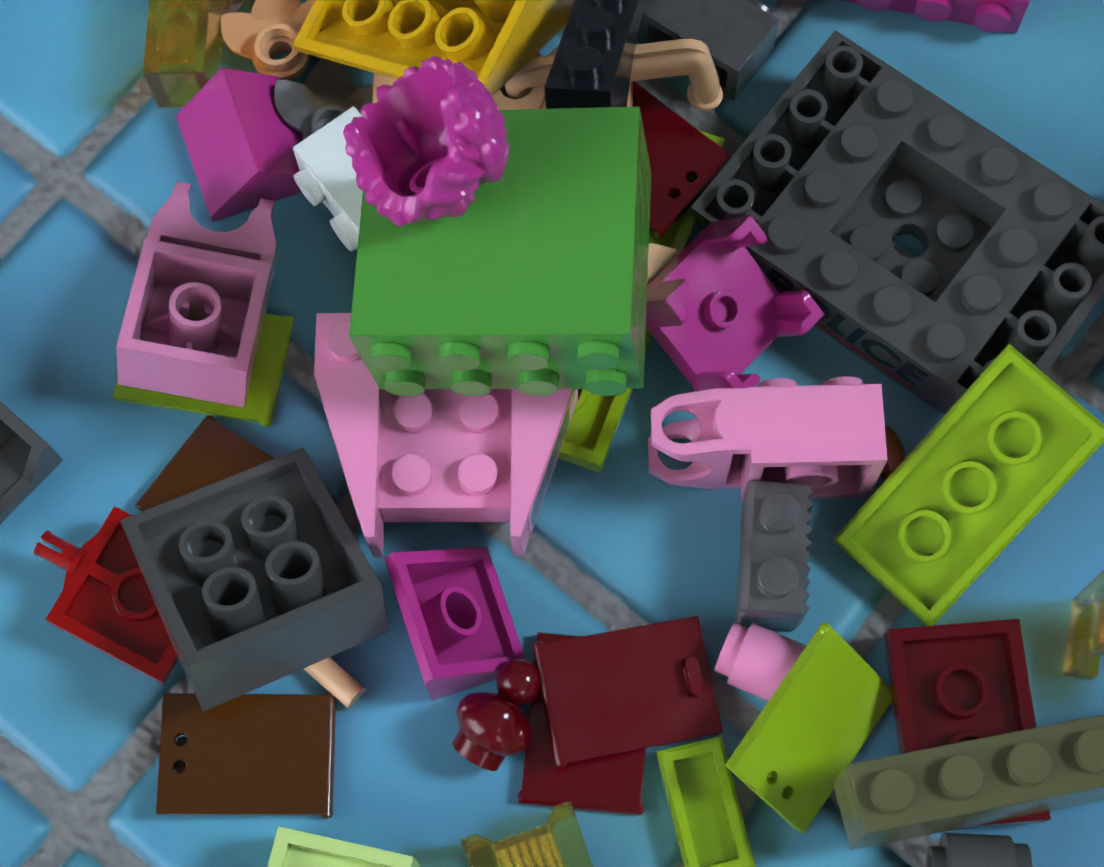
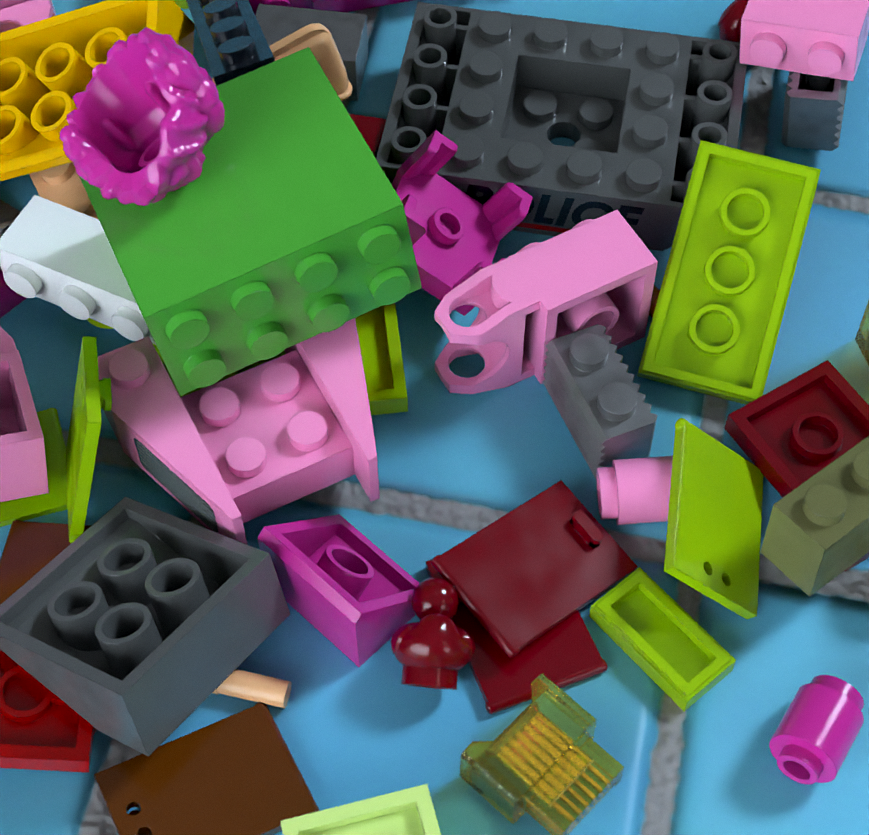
camera: 30 degrees left, 15 degrees down
(297, 364) = (84, 433): none -> lime container

